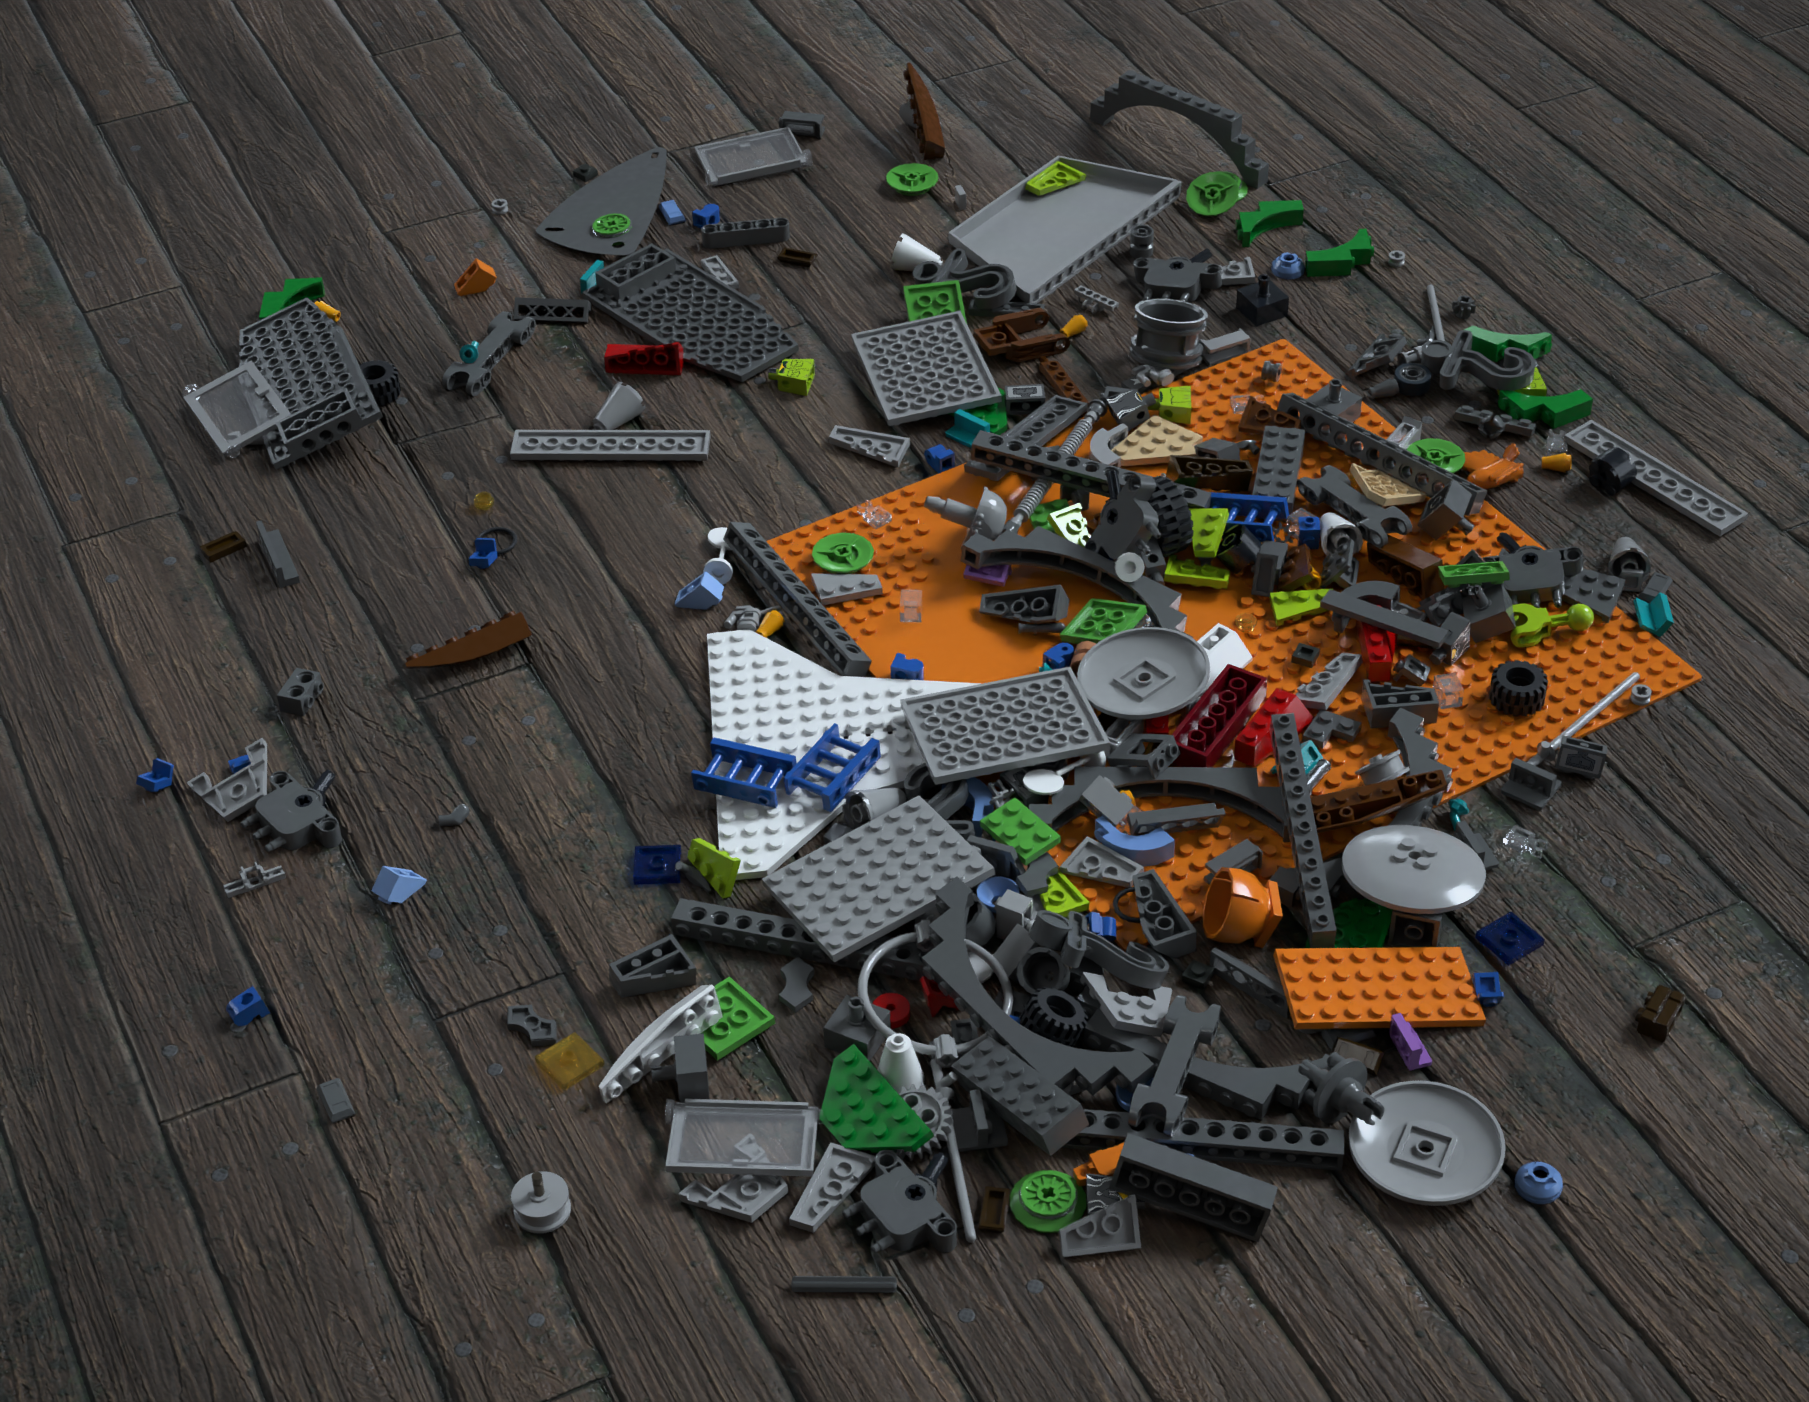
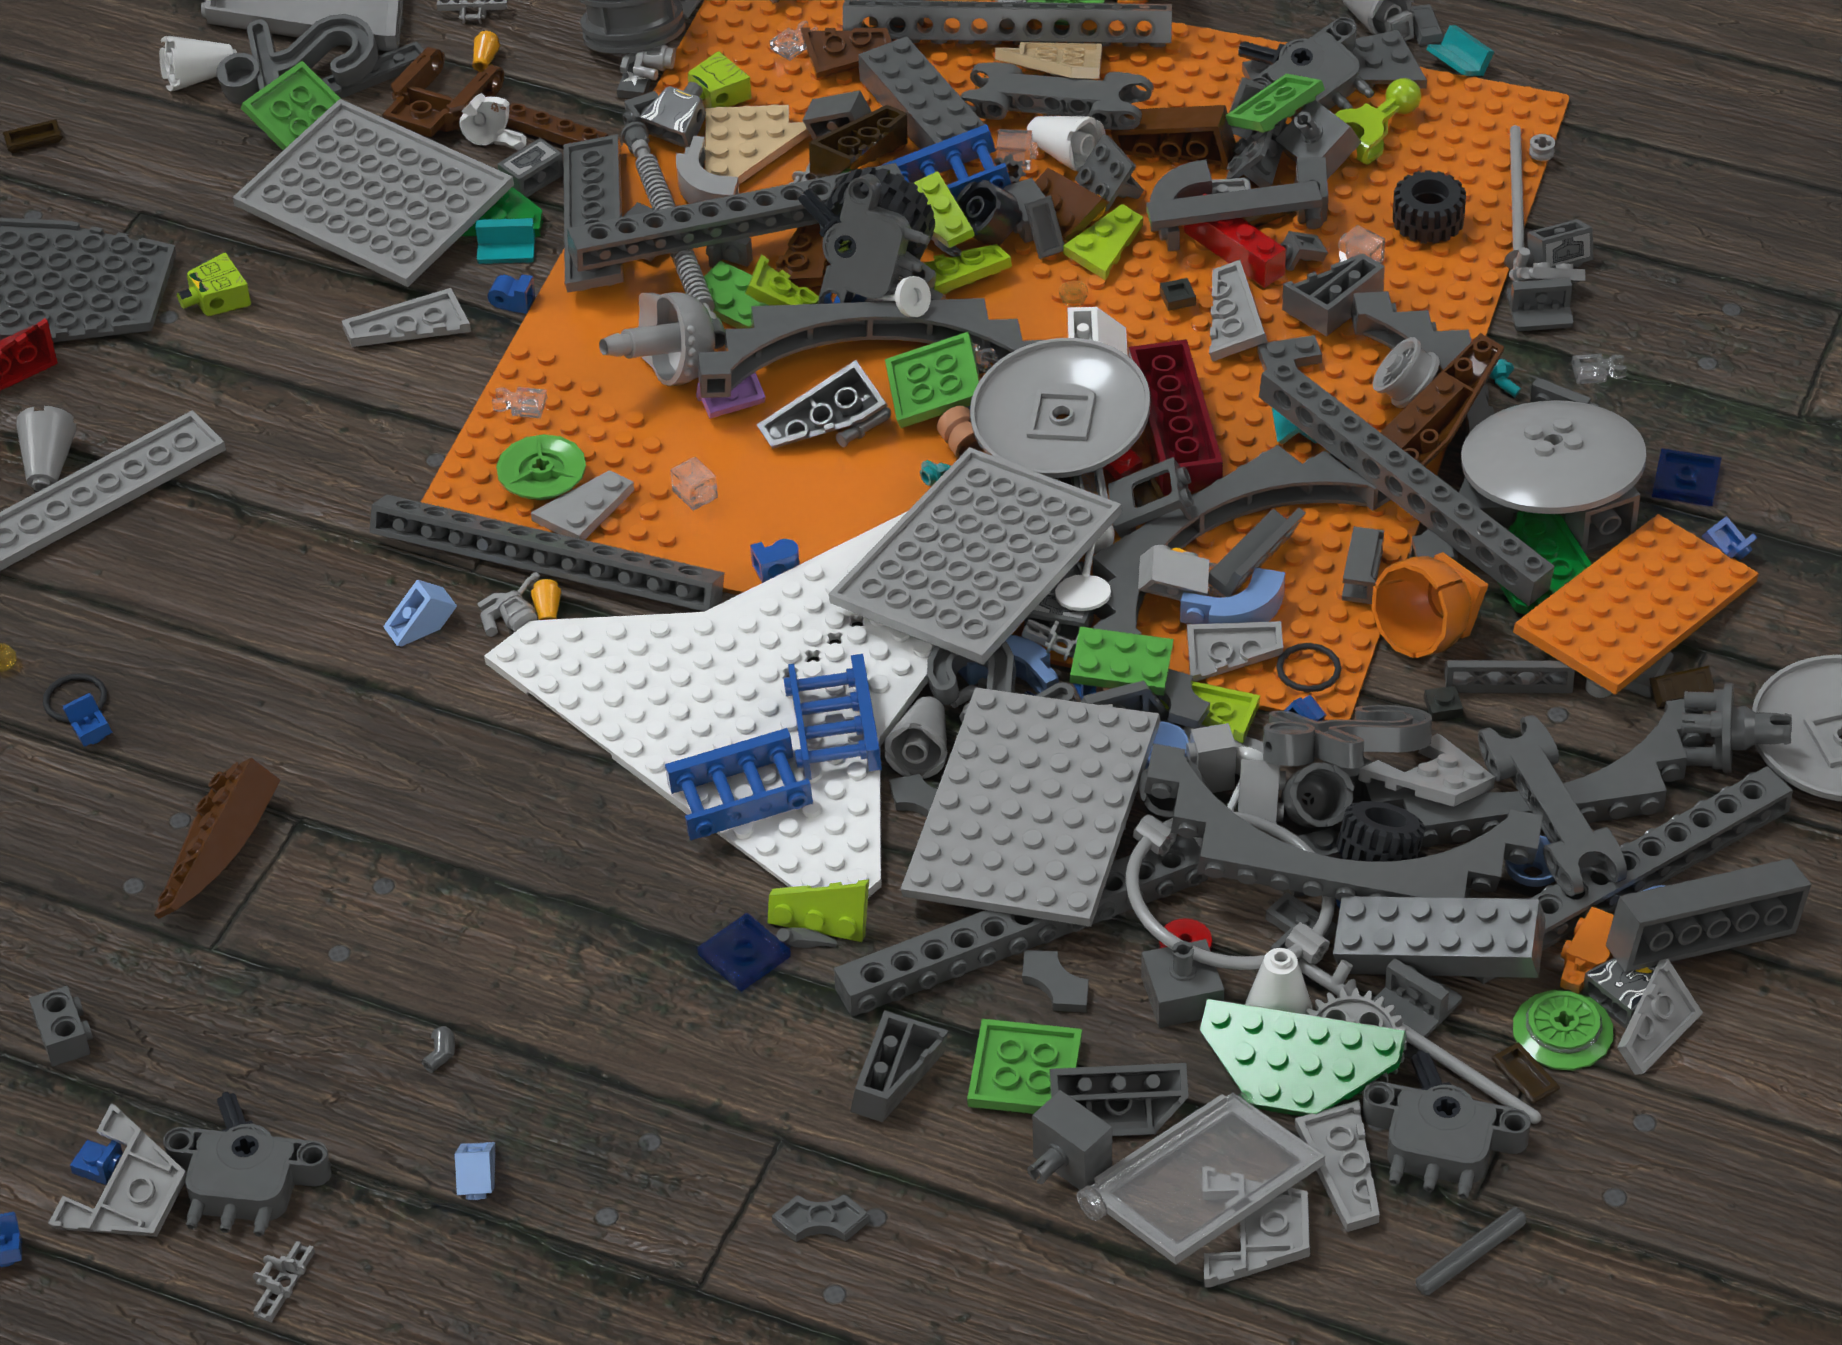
camera: 40 degrees left, 5 degrees up
(569, 1061) = (911, 1227): clear yellow plate -> none
(656, 1042) = (1002, 1104): white wedge -> none
(718, 567) = (408, 570): white piece -> none
(744, 1064) = (1126, 1096): none -> dark grey wedge
(934, 997) = (1224, 895): red slope -> none
(1025, 360) = (484, 126): none -> white piece
(1059, 656) = (926, 446): blue leg -> none
(1161, 917) = (1359, 661): dark grey wedge -> none
(1249, 444) = (850, 86): dark grey bar -> none
(1254, 741) = (1234, 392): red wedge -> none
(1309, 531) = (1036, 153): blue bracket -> none
(1408, 1043) = (1720, 641): medium lavender bracket -> none
(1446, 510) = (1154, 48): dark grey brick -> none
(1547, 764) = (1543, 271): none -> light grey hinge

